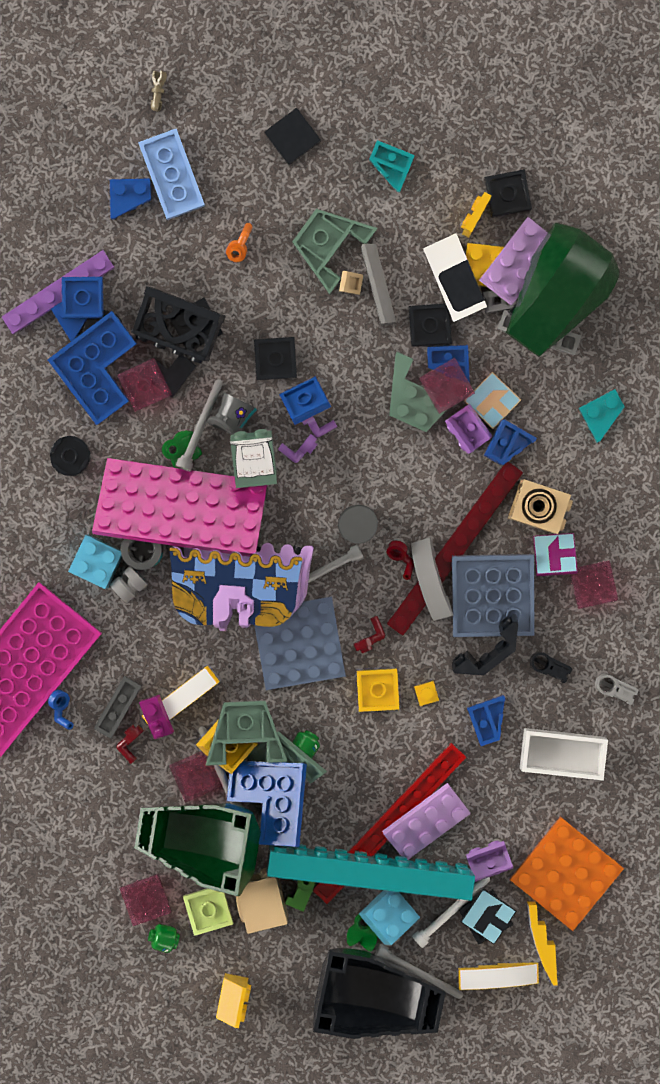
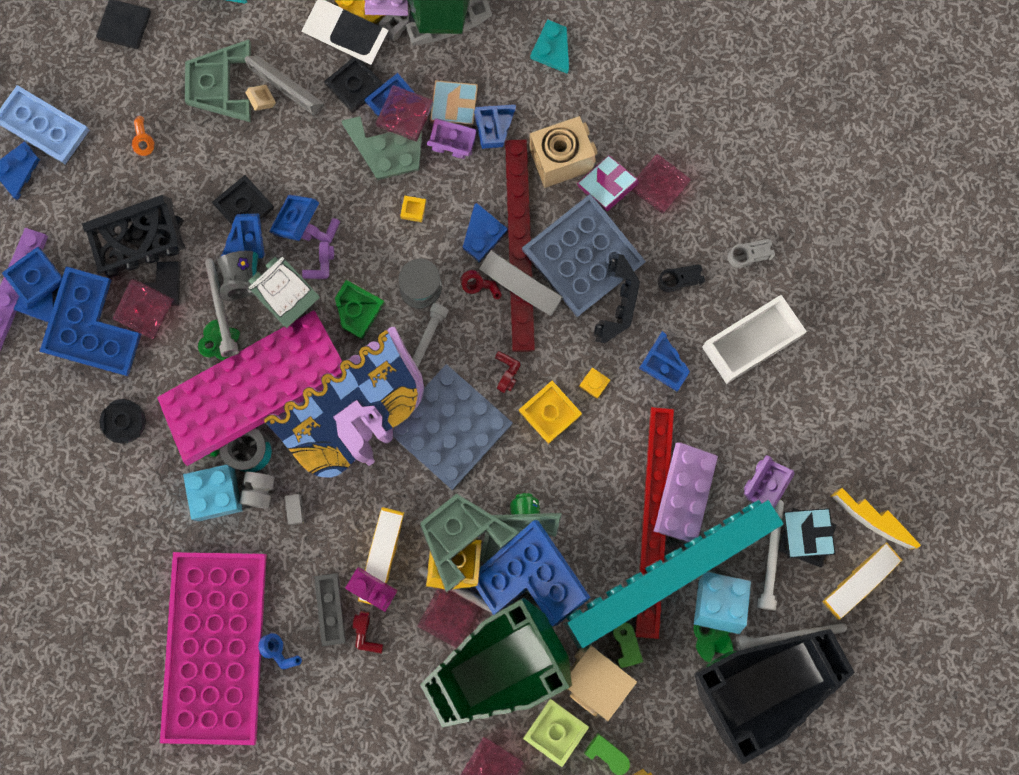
camera: 35 degrees left, 10 degrees down
(145, 617) = (294, 509): none -> light grey piece
(232, 951) = (616, 760): none -> bright green leg
(256, 388) = (245, 235): none -> blue wing
(298, 504) = (357, 309): none -> green plate
(397, 460) = (413, 208): none -> yellow plate
(434, 518) = (482, 233): none -> blue wing
(566, 873) = (843, 443): orange plate -> none

